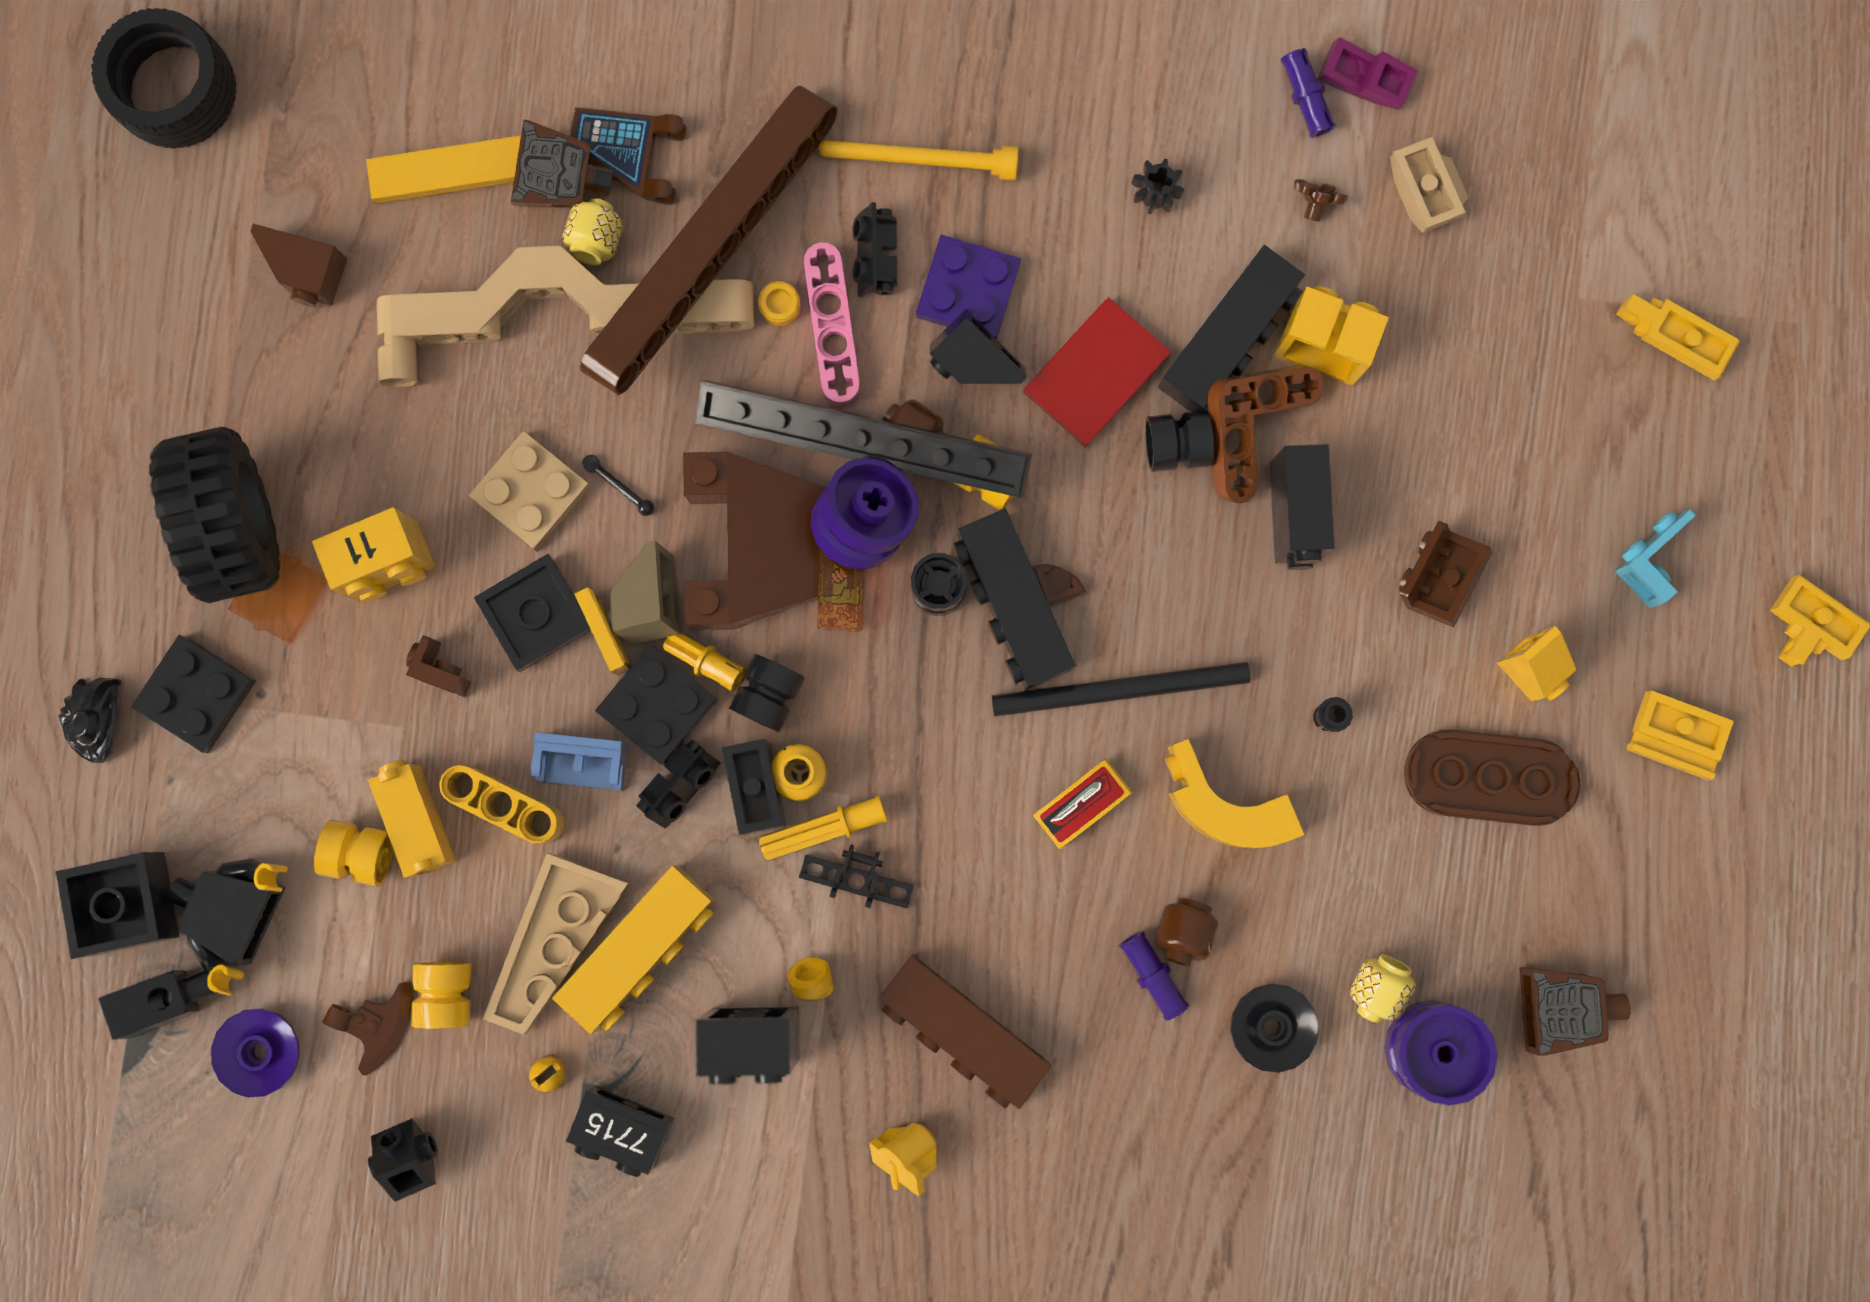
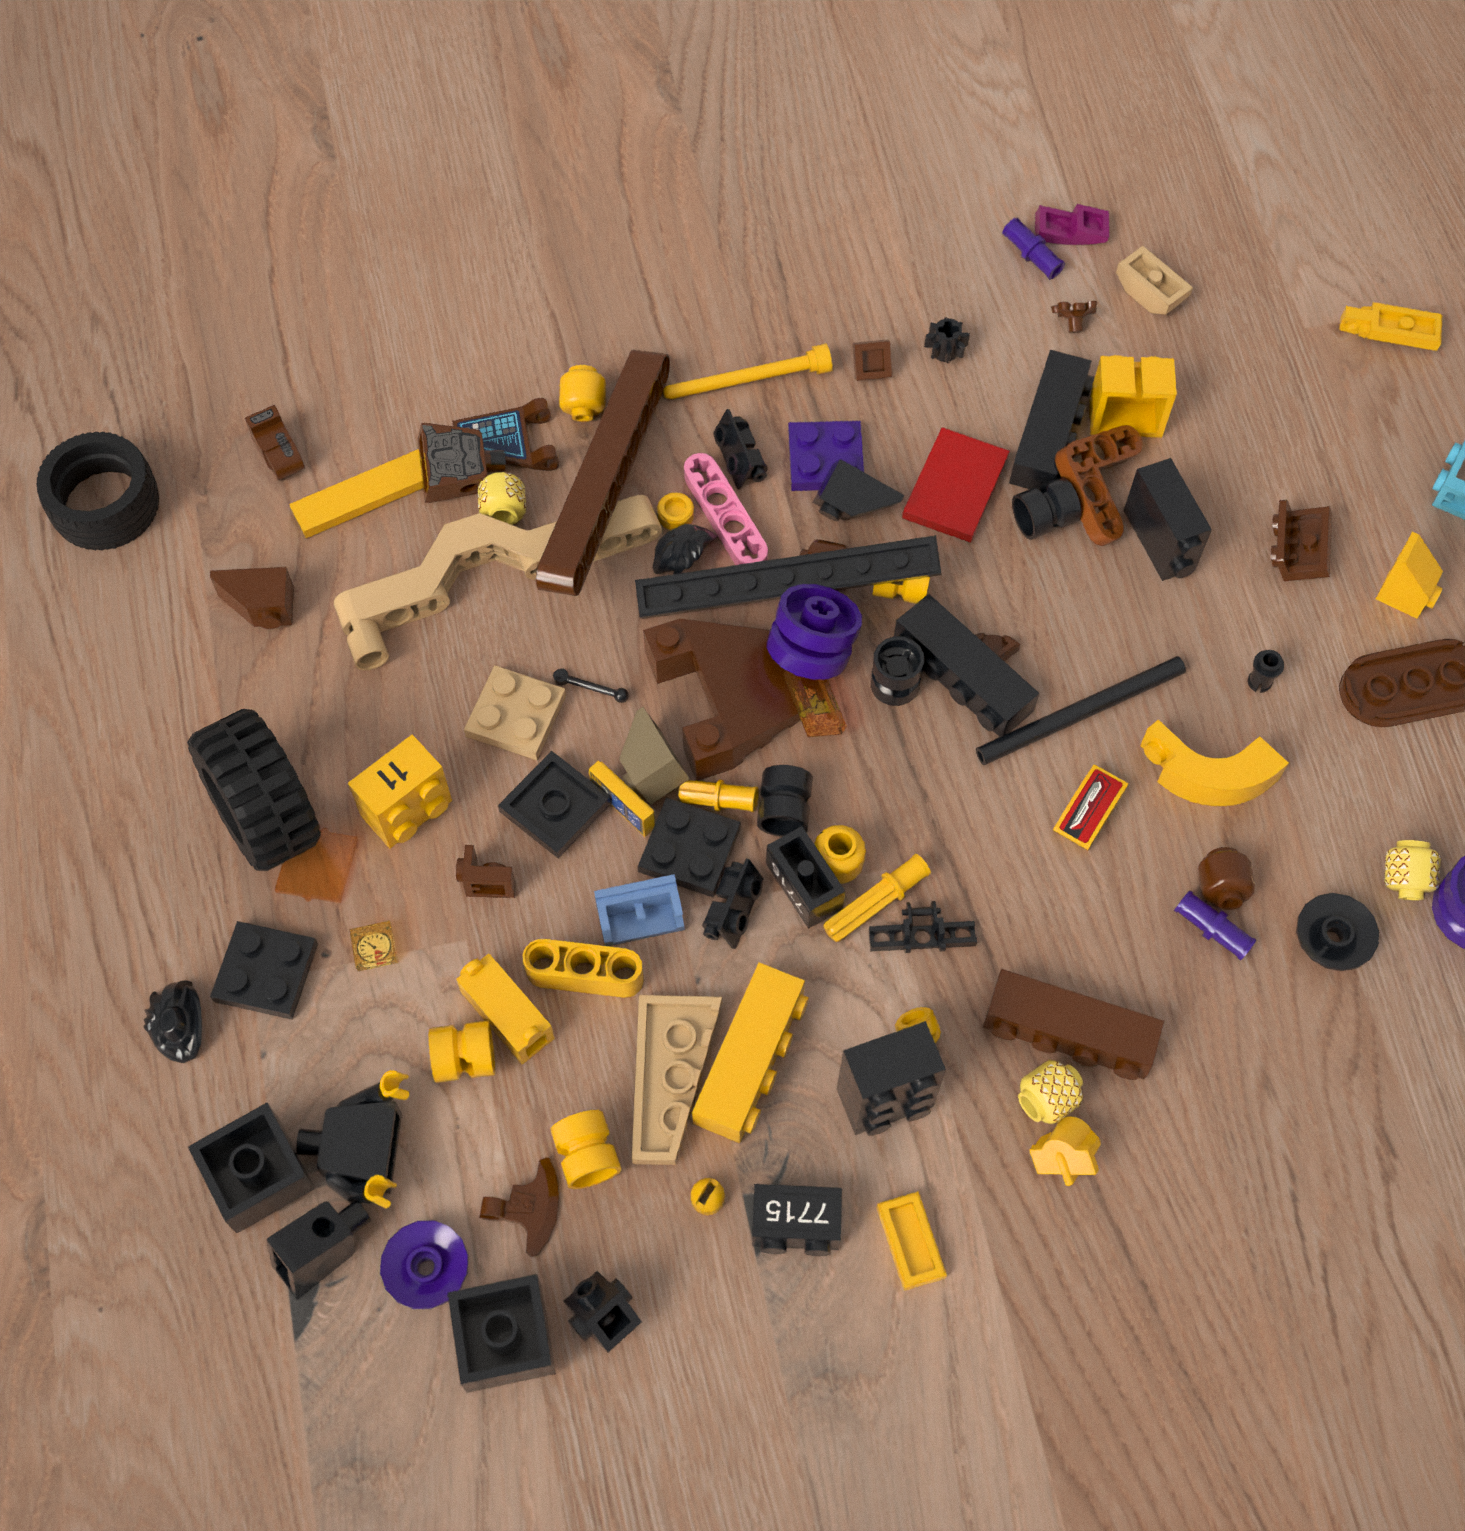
camera: 20 degrees left, 20 degrees down
(302, 1149) = (501, 1333): none -> black brick
(307, 704) = (373, 946): none -> clear yellow tile
(372, 76) = (274, 442): none -> reddish brown leg
(724, 1185) = (911, 1241): none -> yellow tile
(725, 122) = (582, 393): none -> yellow head
(769, 352) = (680, 548): none -> black hat
(913, 1093) = (1050, 1092): none -> light yellow head
(1063, 184) = (872, 359): none -> reddish brown plate

